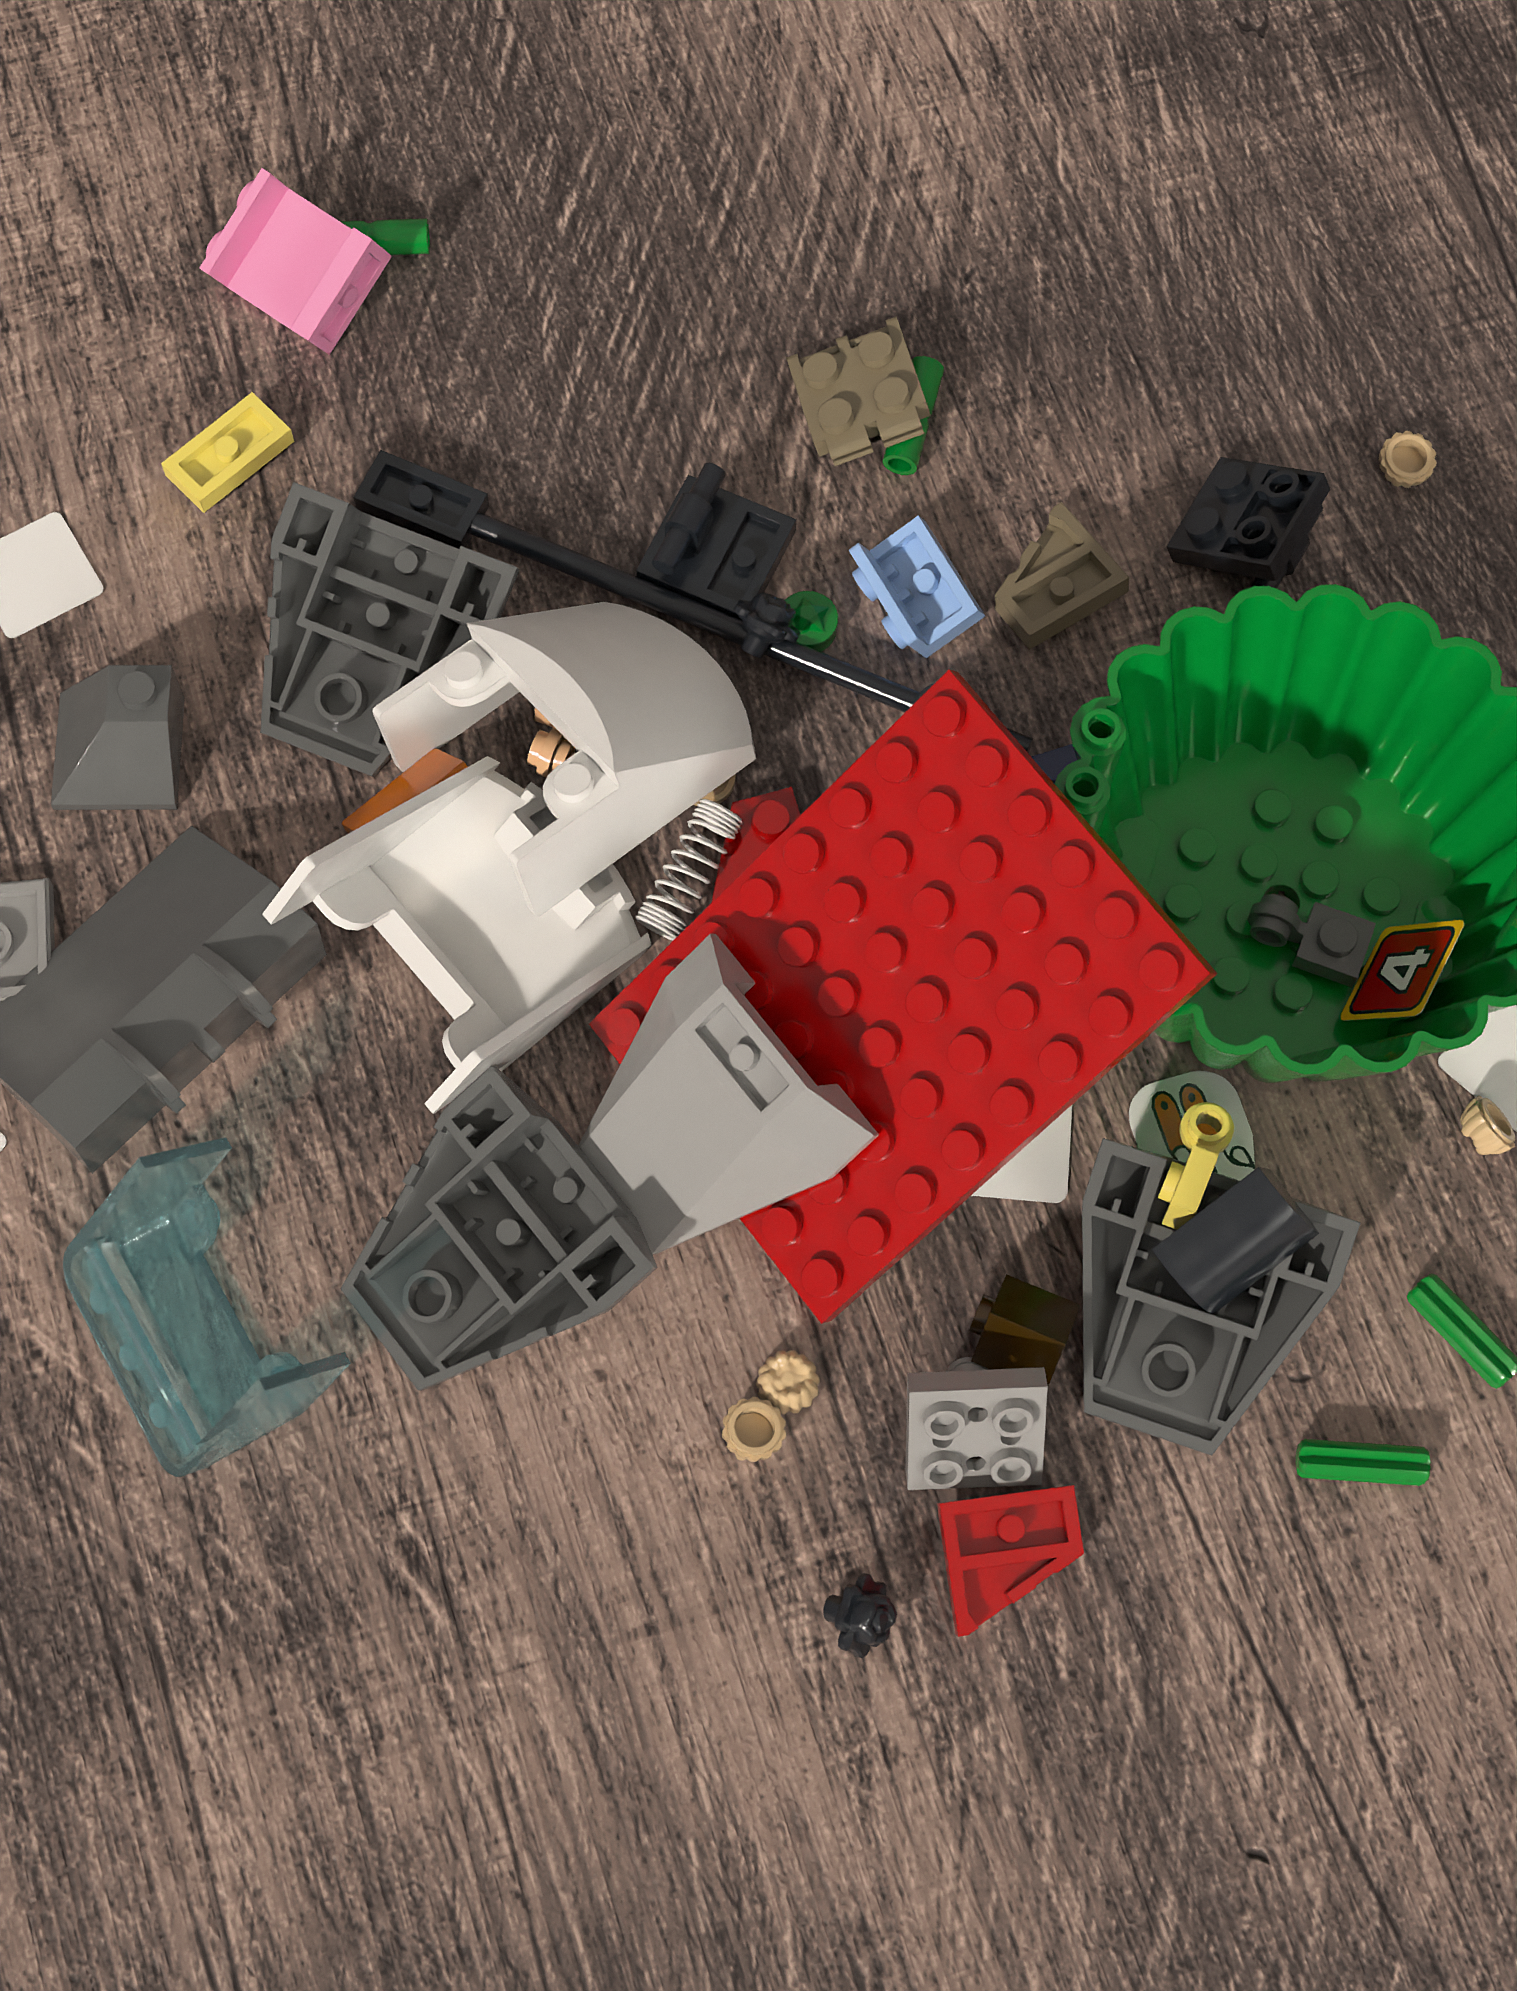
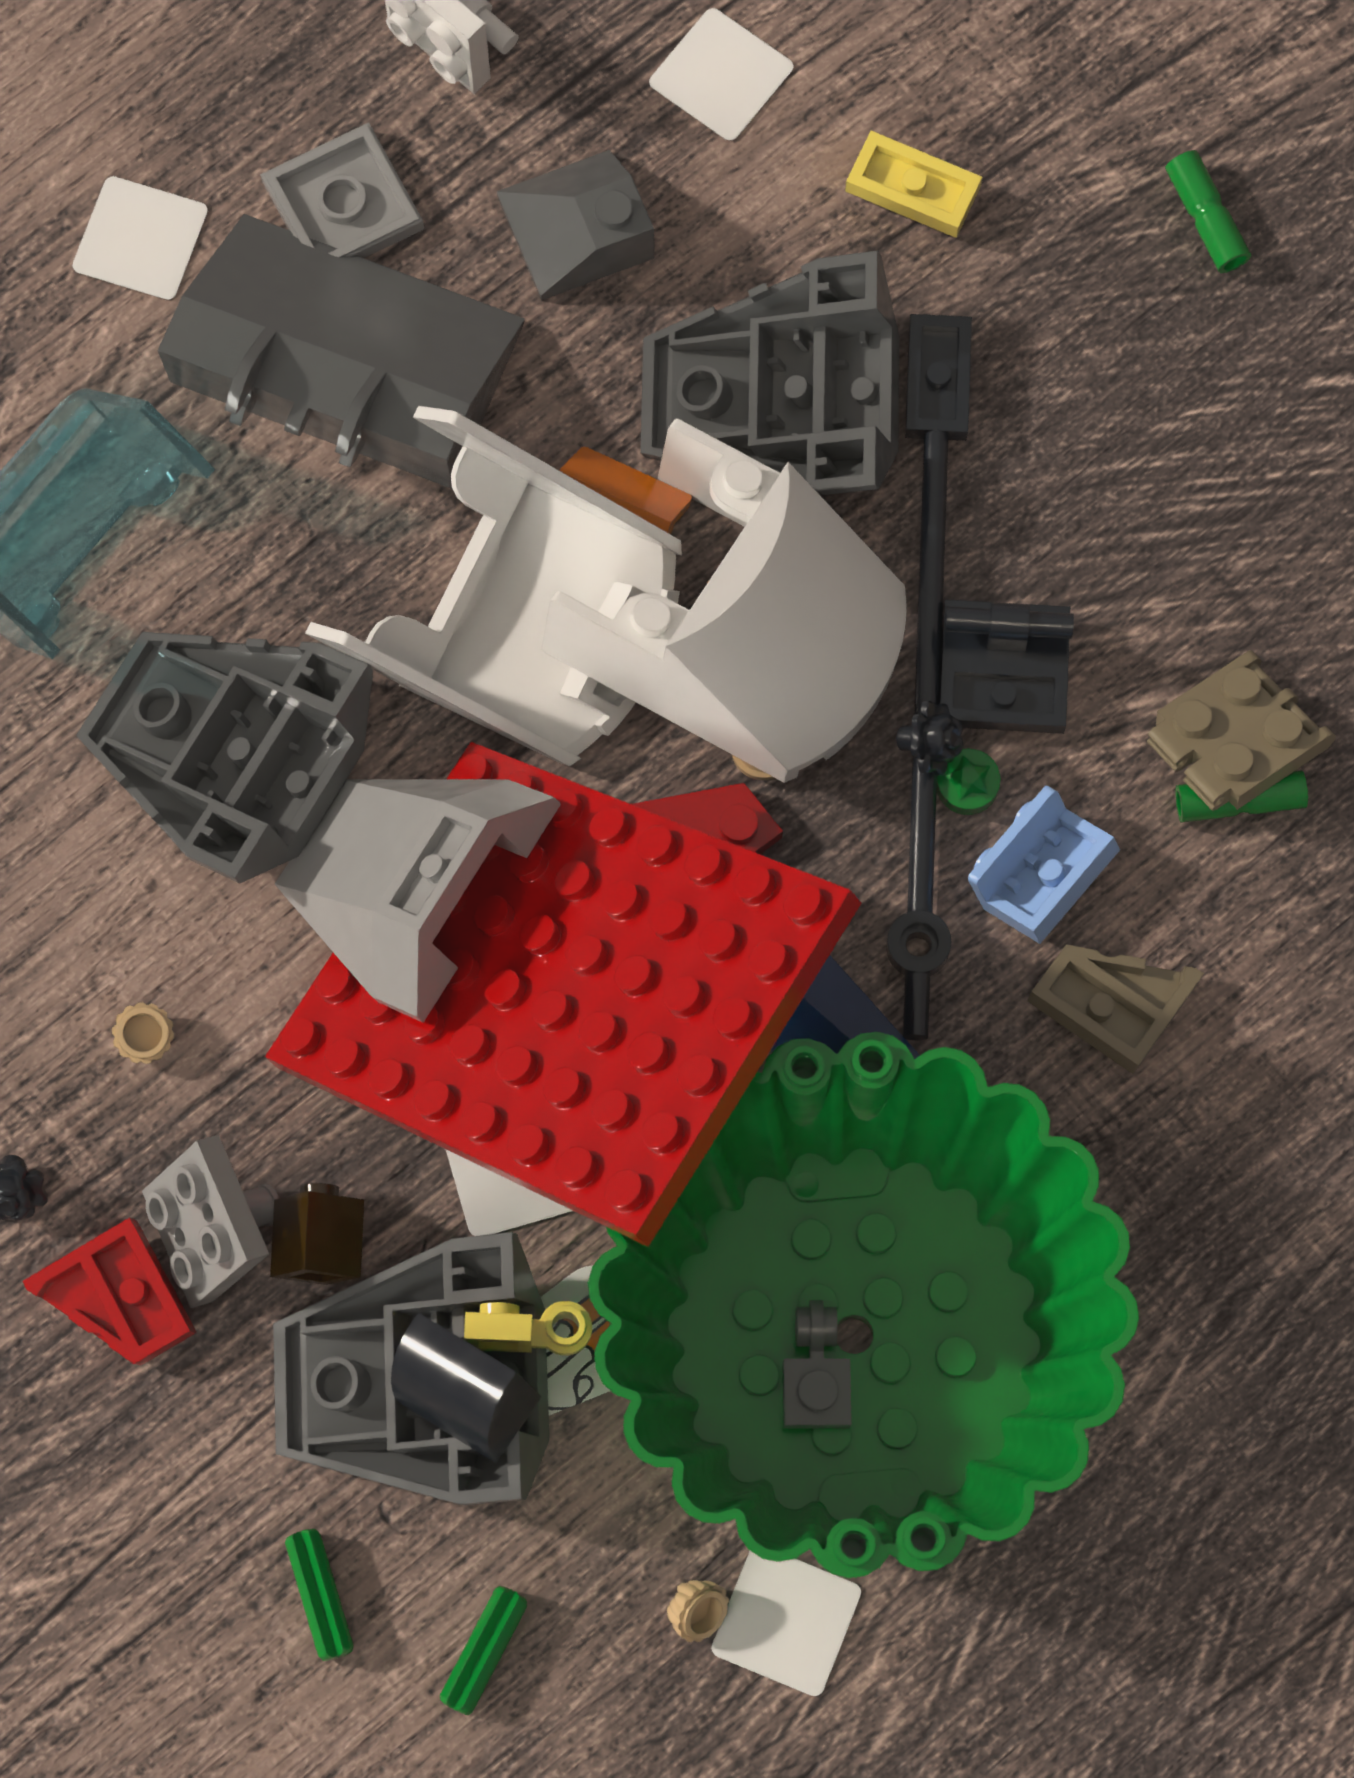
camera: 70 degrees right, 5 degrees up
(294, 261) = (1139, 154): bright pink panel -> none
(716, 819) = (708, 769): white piece -> none
(788, 1381) = (204, 1050): tan piece -> none
(1251, 520) = (1258, 1166): black plate -> none
(1402, 971) = (800, 1460): sticker -> none

